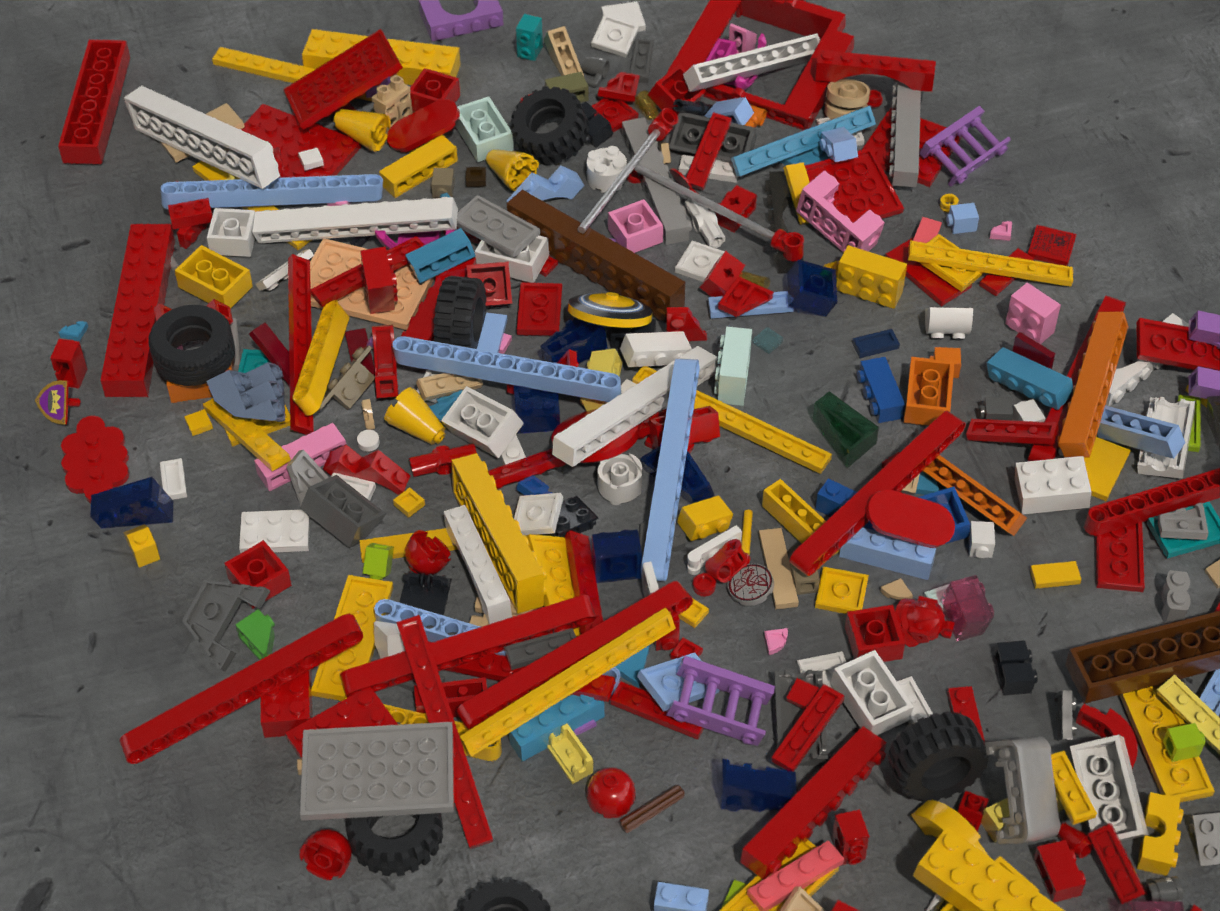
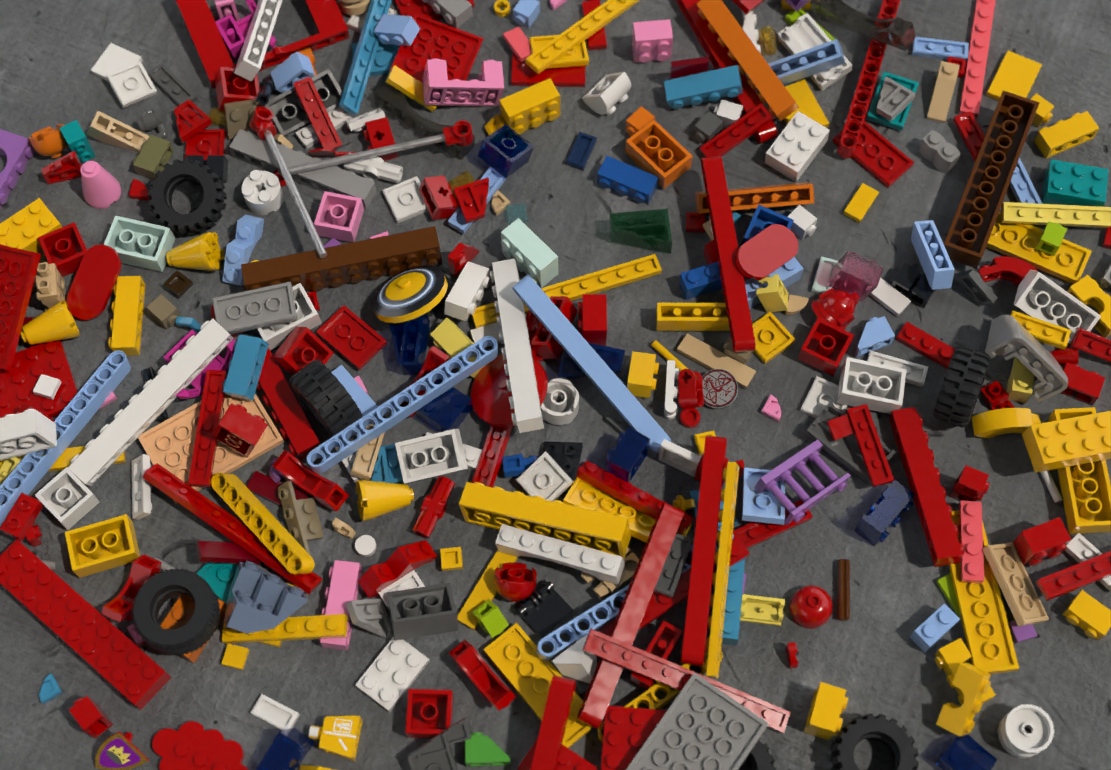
camera: 50 degrees left, 15 degrees up
(189, 530) = (338, 735): none -> yellow torso
(320, 592) = (480, 674): none -> red arch
(500, 47) = (63, 169): none -> red wing
(507, 73) = (99, 186): none -> bright pink cone
(508, 22) = (49, 141): none -> orange cylinder
(515, 858) = (825, 711): none -> yellow brick
(549, 806) = (791, 650): none -> red tile
(653, 105) = (239, 115): none -> dark tan wing
(719, 449) = (593, 318): none -> red brick
(731, 183) = (358, 123): none -> white plate
(764, 321) = (499, 203): none -> tan tile
(881, 559) = (774, 296): none -> light yellow hinge
(926, 668) = (875, 336): none -> light blue slope
(983, 658) = (890, 298): none -> white tile
(1052, 652) = (932, 255): none -> light blue brick
(1138, 397) = (768, 39): none -> clear yellow cone

